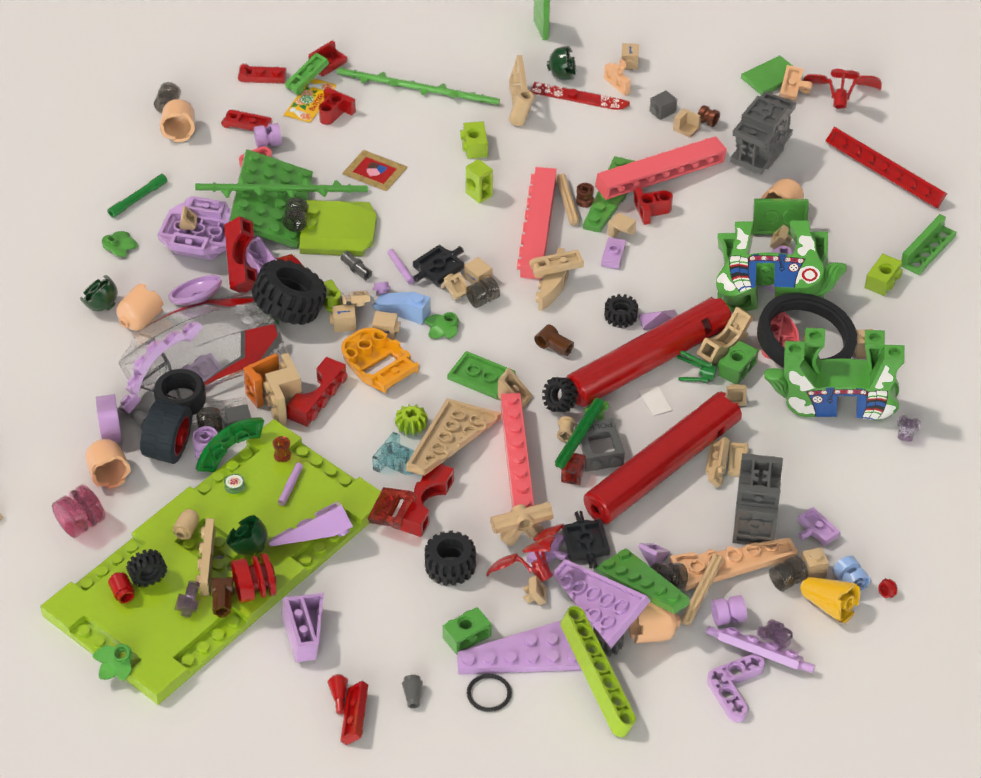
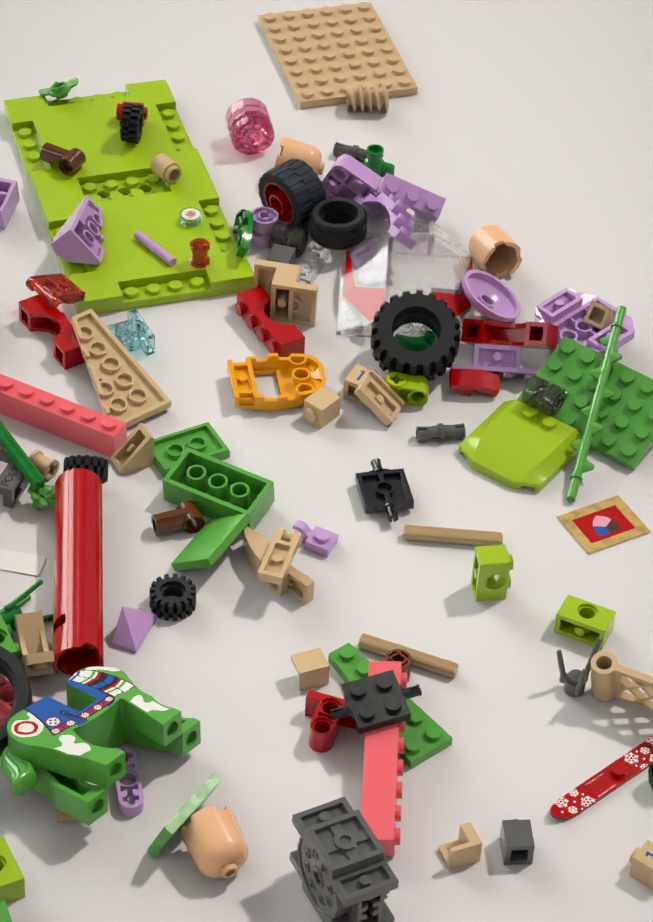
camera: 120 degrees right, 5 degrees down
(52, 449) = (354, 151): none -> dark grey pin
(64, 425) = (376, 163): none -> green piece
(100, 294) = (537, 237): dark green cylinder -> none
(113, 369) = (423, 202): none -> lavender arch
(119, 243) = (619, 289): bright green plate -> none
(187, 602) = (77, 138): plate -> none
(206, 550) = (117, 165): tan plate -> none
(249, 537) = (105, 187): dark green cylinder -> none
(253, 577) = (53, 167): red wheel -> none
(255, 376) = (314, 273): orange bracket -> none
(381, 287) = (385, 432): lavender plate -> none
(400, 266) = (415, 467): lavender piece -> none
(406, 304) = (338, 435): light blue slope -> none
(411, 419) = (167, 366): lime gear -> none
(442, 325) = (285, 455): bright green plate -> none
(449, 222) = (452, 535): none -> tan axle
(455, 285) = (335, 485): tan bracket -> none
(476, 270) = (339, 511): tan brick -> none
(481, 292) = (302, 497): clear smoke wheel -> none
(508, 276) = (318, 539): none -> lavender plate
(515, 330) = (218, 487): none -> bright green brick
(526, 126) = (576, 679): none -> dark grey plant
(538, 219) = (385, 602): coral brick -> none
(564, 310) = (210, 542): none -> bright green tile
(613, 253) = (275, 646): lavender plate -> none
(615, 77) = (611, 822): light nougat plate -> none
(638, 169) = (375, 702): none -> black plate
(708, 115) = (456, 878): copper wheel -> none
(781, 238) = (156, 809): tan tile -> none

